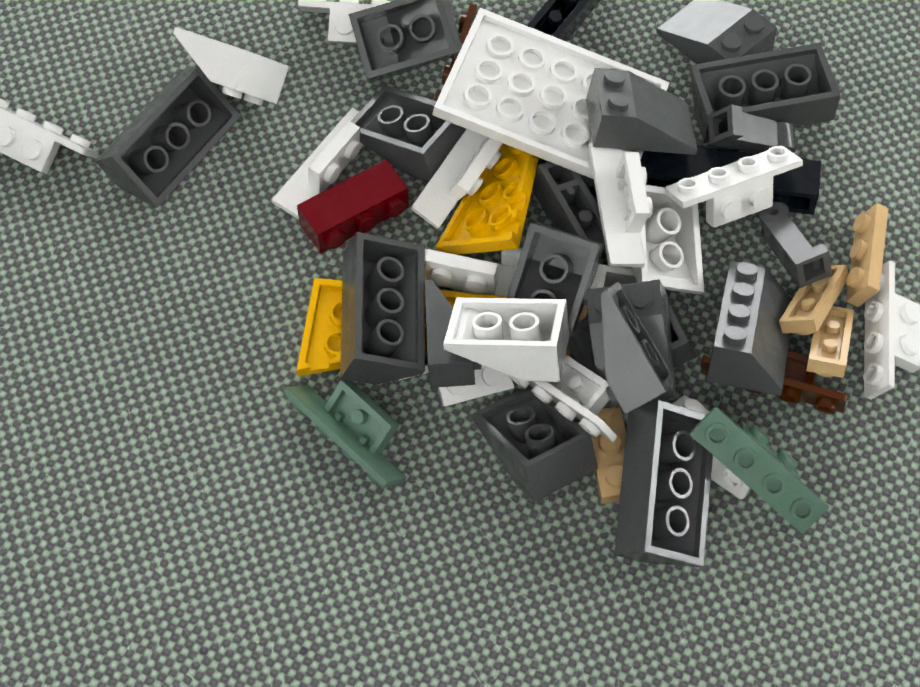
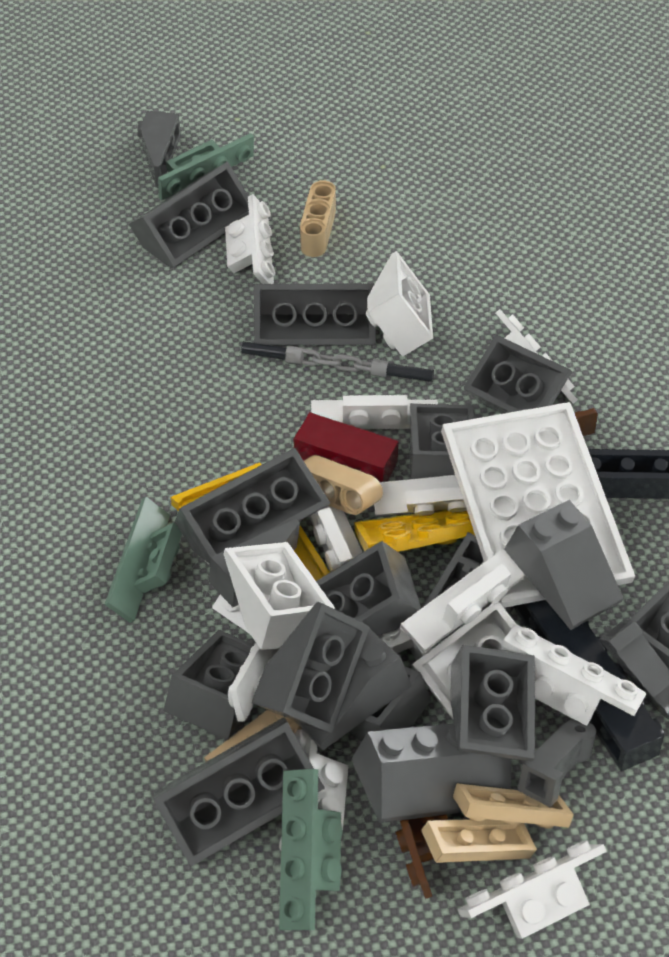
camera: 55 degrees right, 10 degrees down
(50, 66) = (318, 218): none -> tan beam
(202, 182) = (377, 367): none -> piece
(411, 222) = (344, 486): none -> tan beam
(732, 248) = (494, 702): none -> dark grey slope
(867, 254) = (600, 824): tan plate -> none

